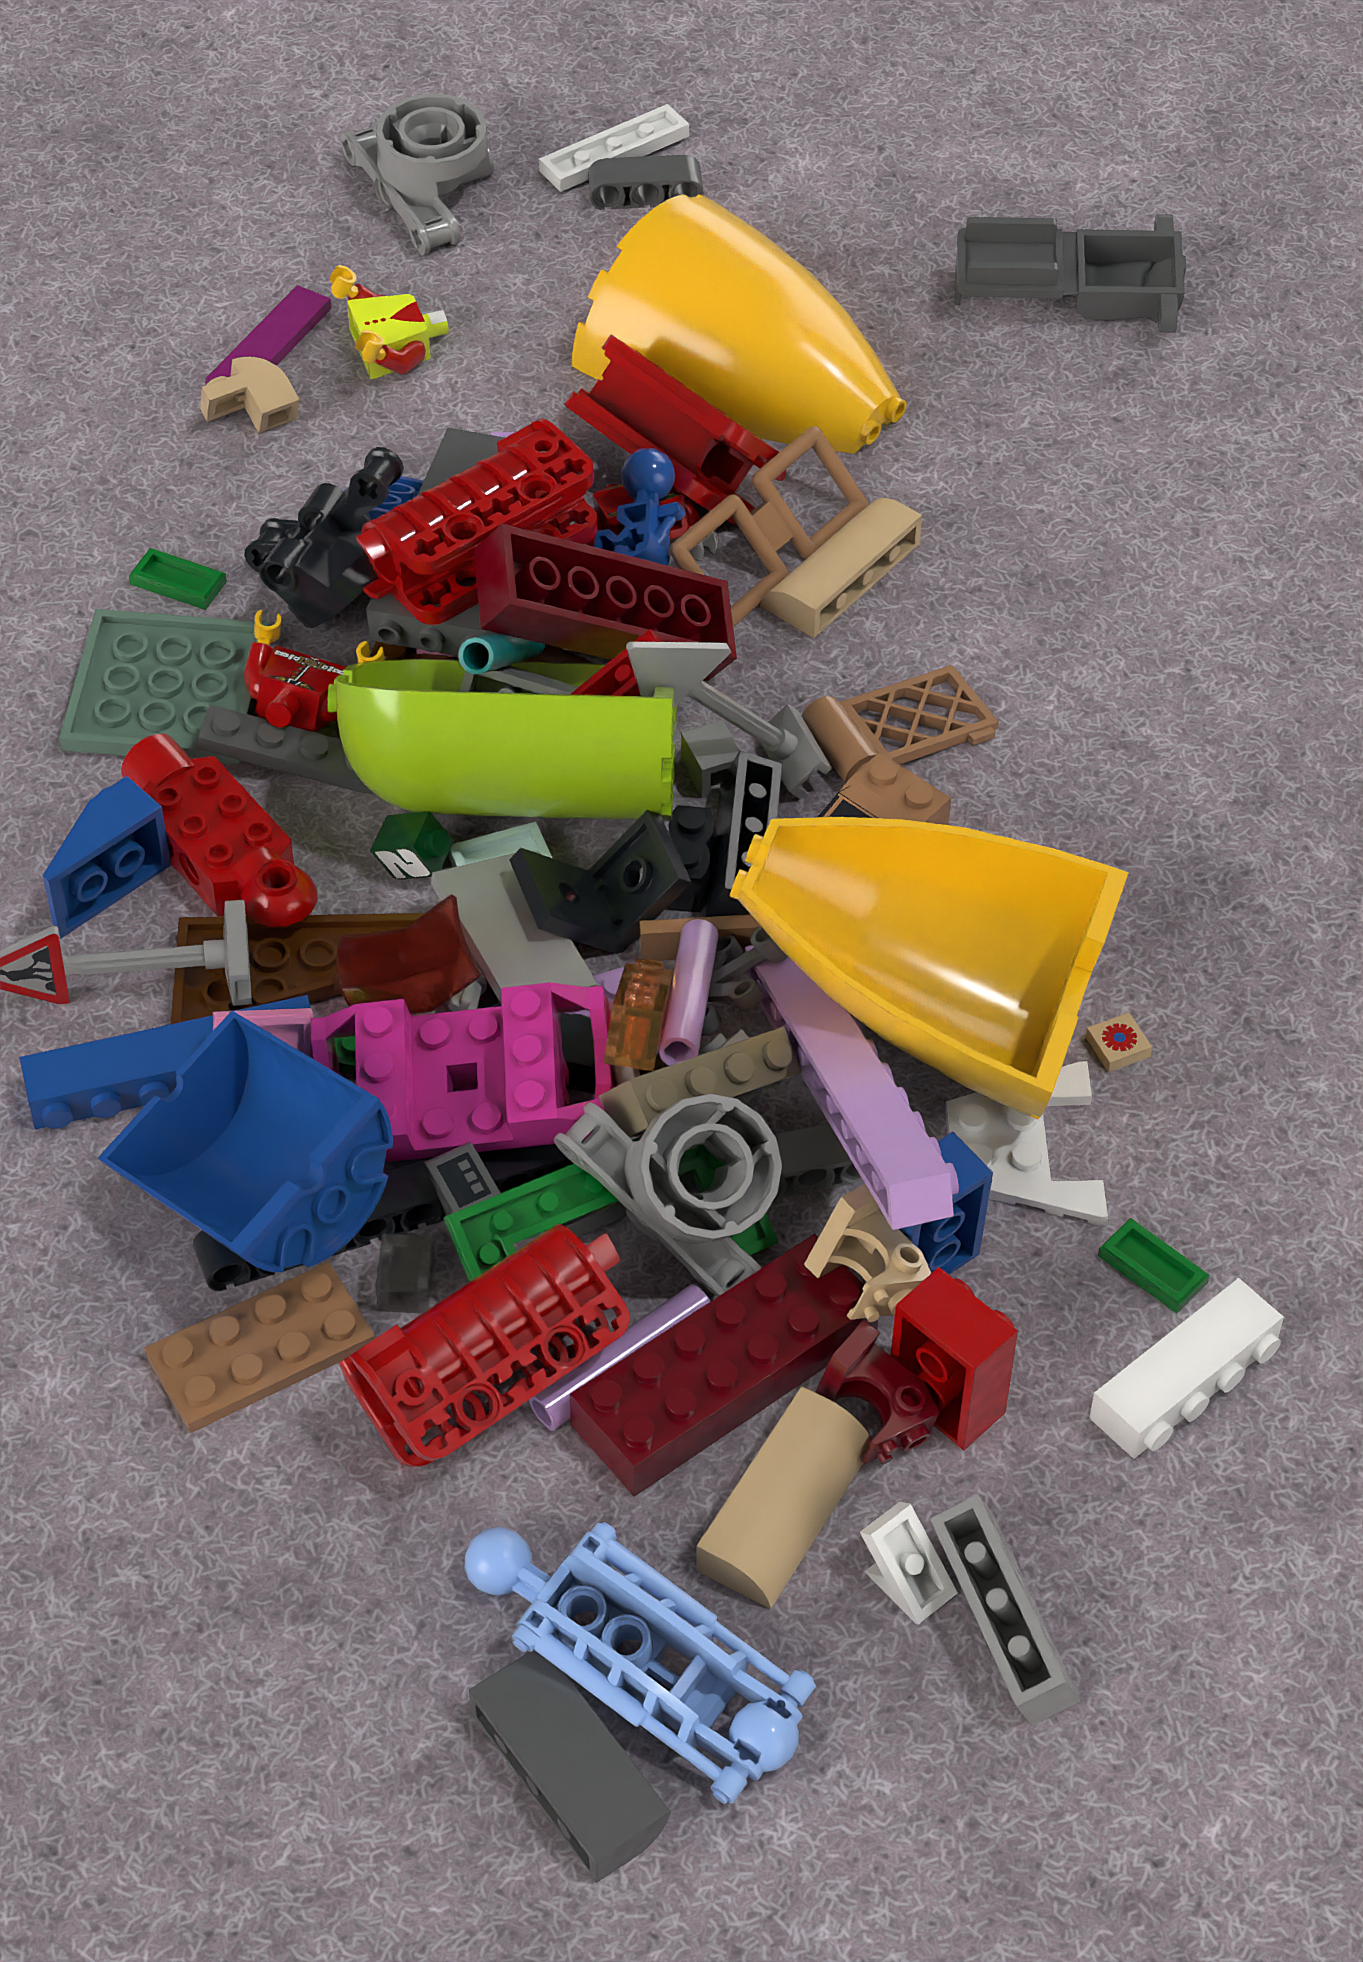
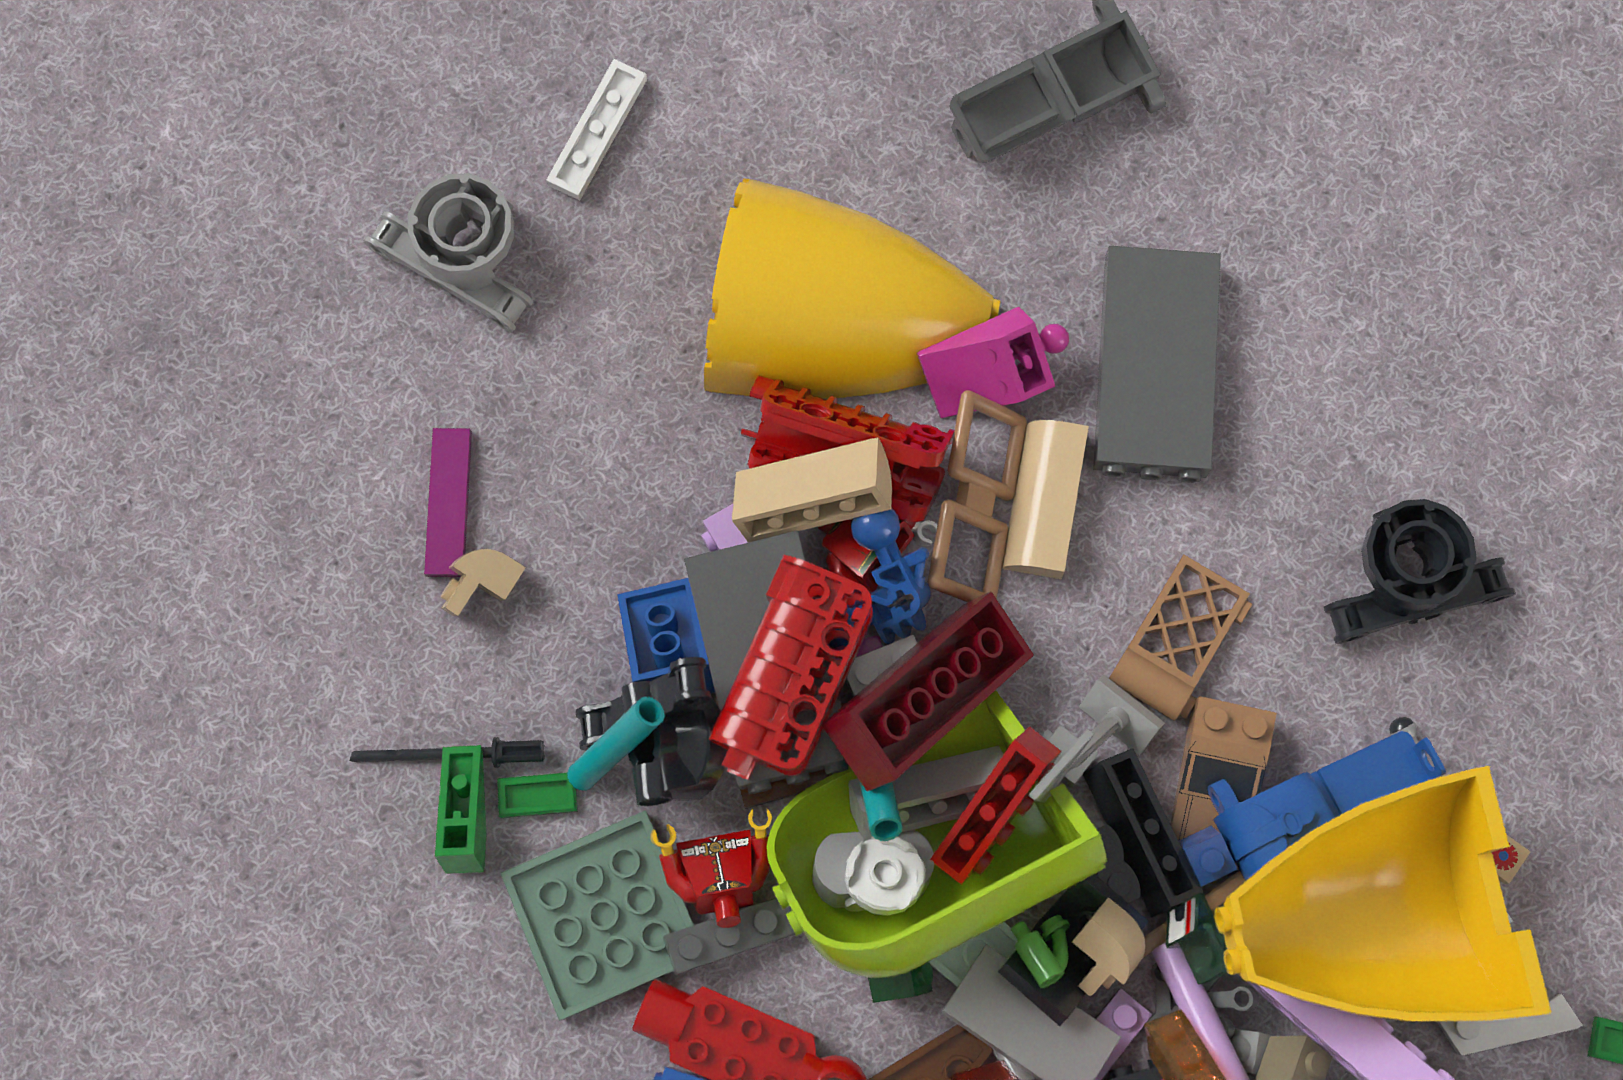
camera: 25 degrees left, 25 degrees up
(93, 551) = (461, 811): none -> green slope
(165, 528) = (500, 752): none -> black piece
(279, 522) = (616, 743): none -> teal piece
(387, 329) = (542, 442): torso -> none
(558, 867) = (1042, 963): none -> bright green plant
(618, 421) = (812, 490): none -> tan brick
(641, 886) = (1113, 943): none -> tan brick
(643, 180) = (646, 157): dark grey beam -> none
(732, 931) = (1196, 933): none -> clear green slope
(859, 430) = (985, 361): none -> dark pink slope
(1029, 509) = (1157, 363): none -> dark grey brick
(1181, 759) = (1448, 567): none -> black piece

